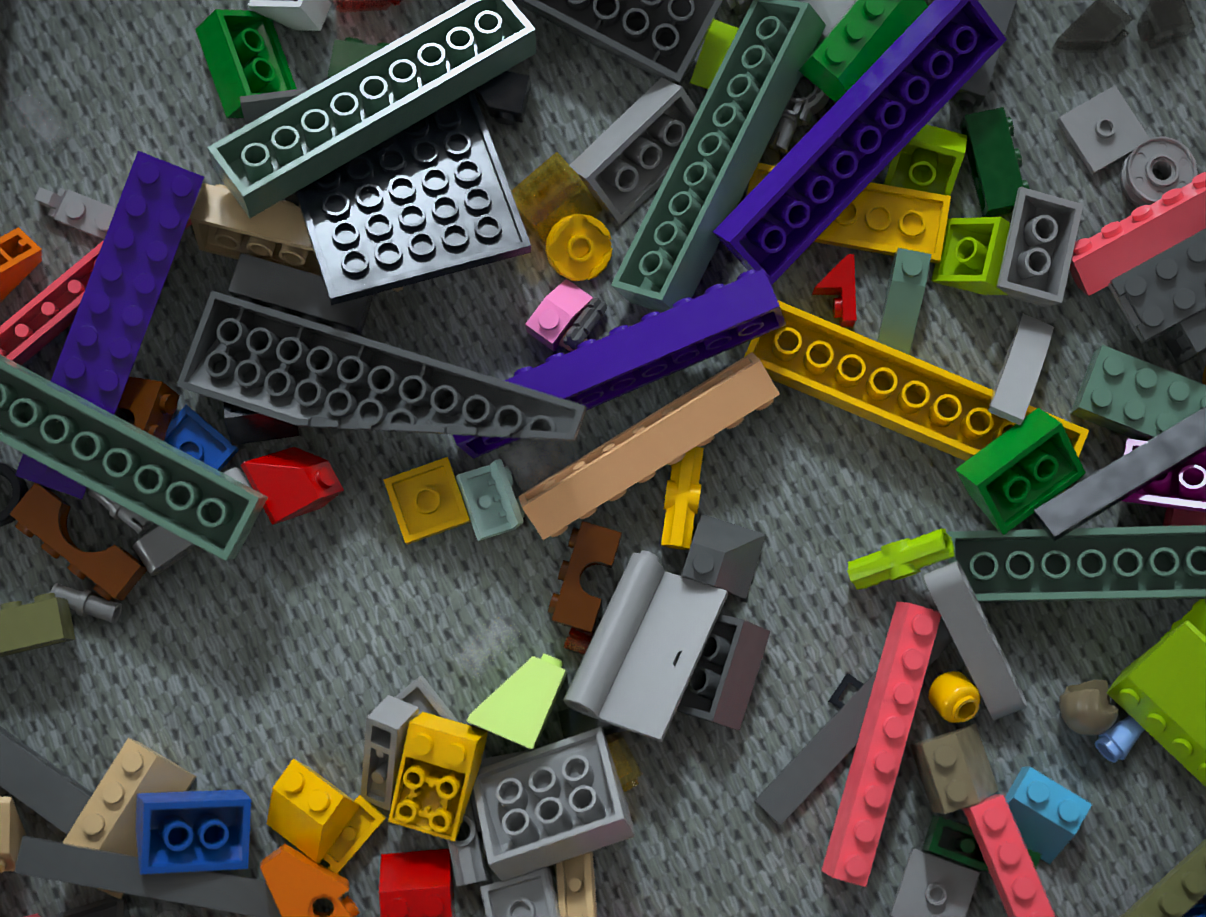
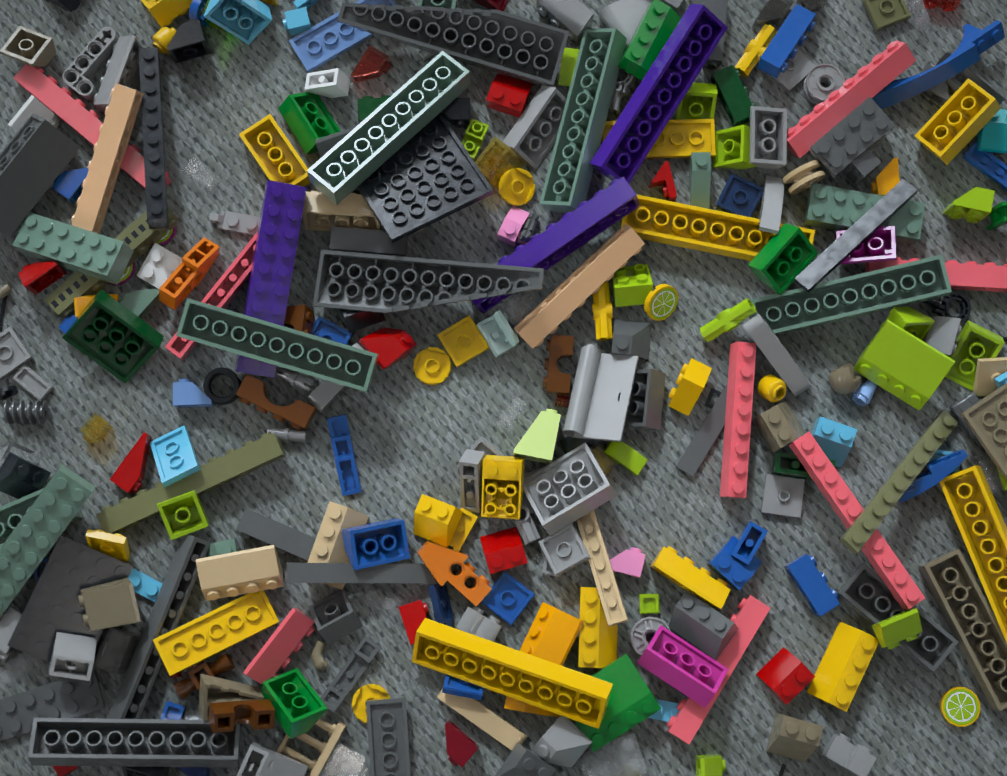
camera: 15 degrees left, 0 degrees up
(170, 105) = (275, 153): none -> yellow brick
(176, 658) = (344, 455): none -> blue slope
(371, 542) = (431, 371): none -> yellow tile
(523, 148) = (474, 137): none -> lime slope
(599, 84) = (508, 95): none -> red slope
(669, 766) = (626, 456): none -> lime slope
(745, 463) = (631, 285): none -> lime slope
(789, 502) = (661, 302): none -> tile
(807, 663) = (690, 385): none -> yellow brick
(968, 342) = (739, 196): none -> dark blue plate
(1050, 89) = (755, 50): none -> yellow piece
(1088, 331) = (803, 177): none -> tan wheel
(1107, 84) = (786, 41): none -> blue brick

